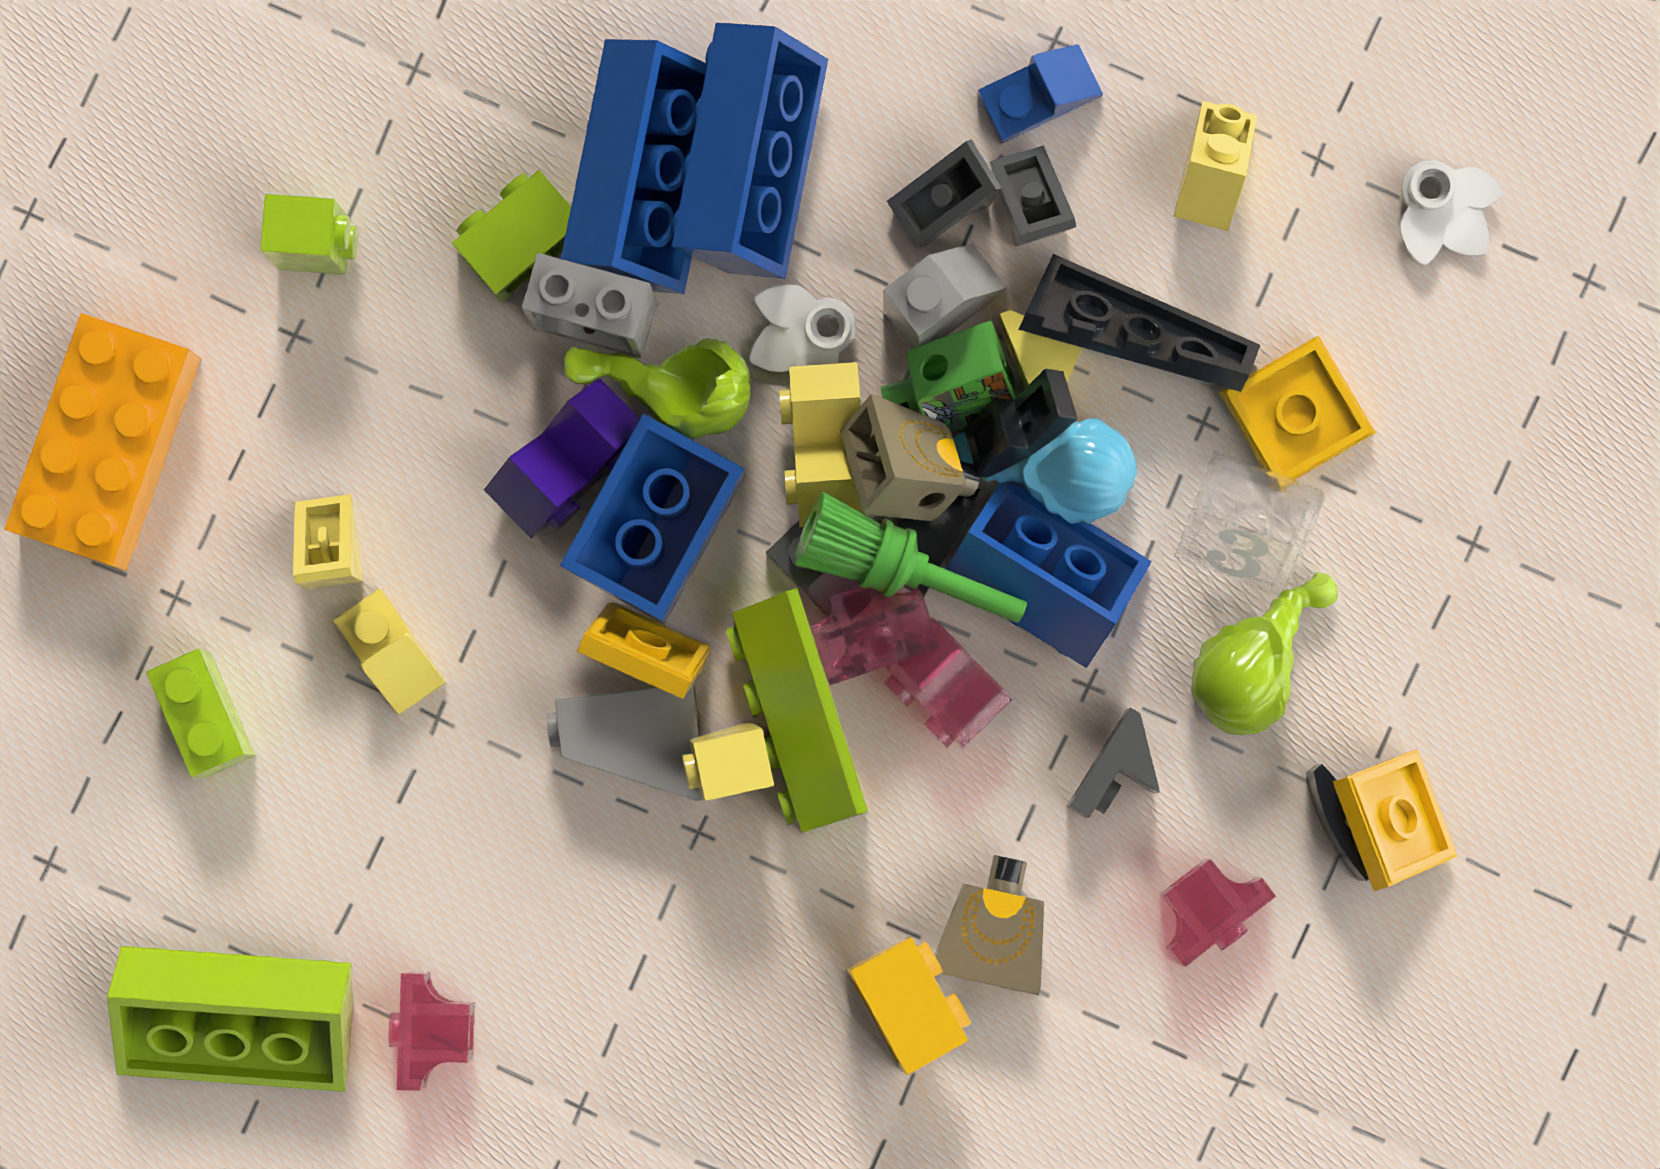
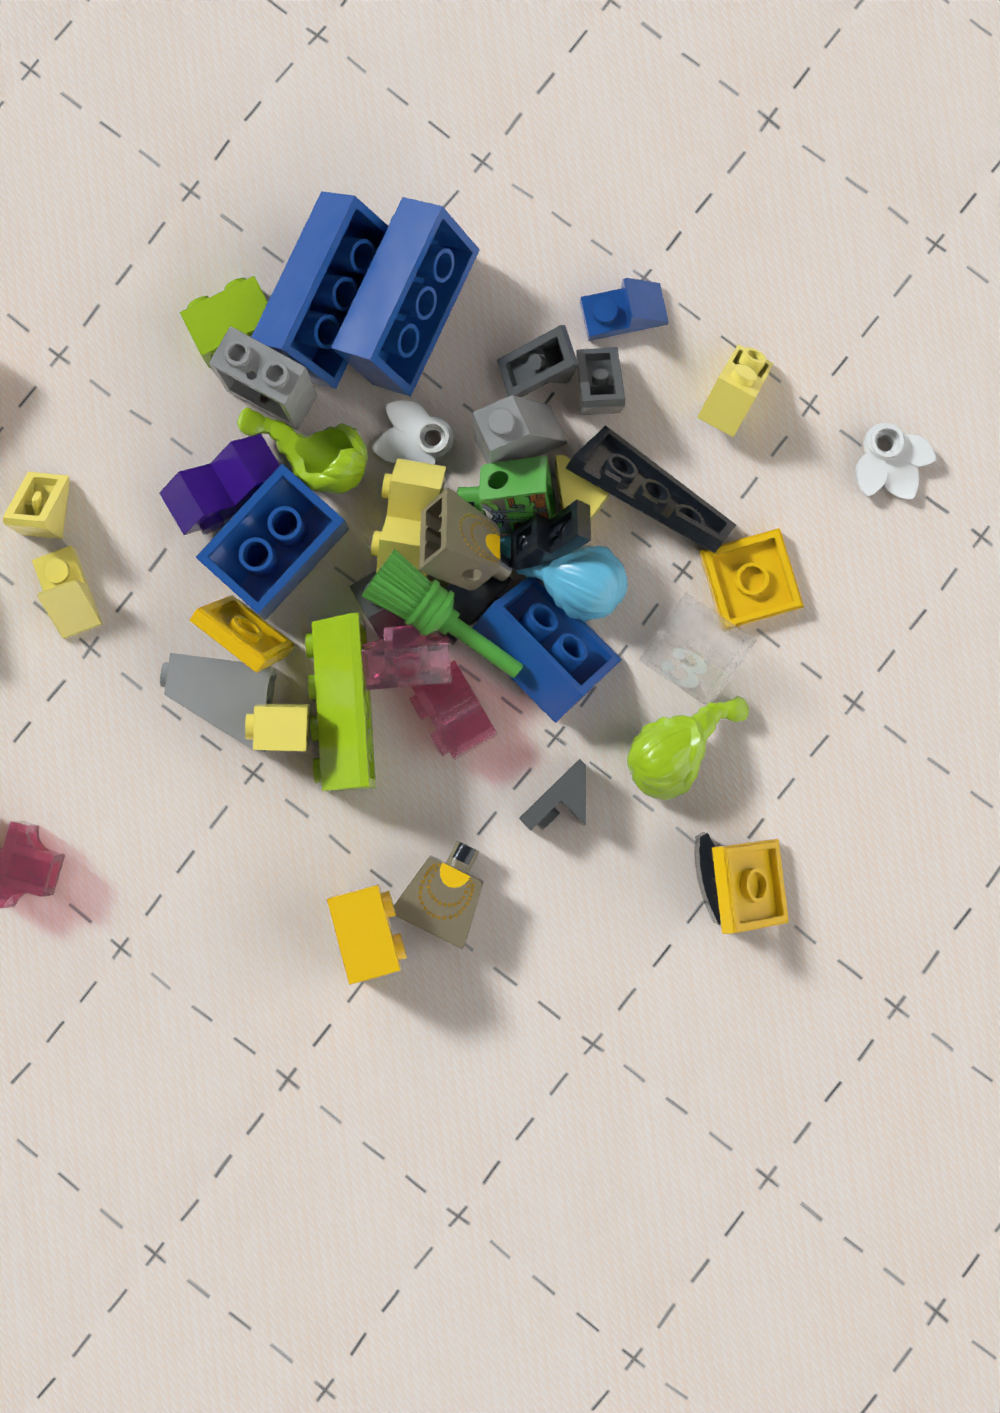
camera: 15 degrees right, 0 degrees up
(307, 234) = (78, 281): lime brick -> none
(1211, 910) = (602, 918): clear pink brick -> none

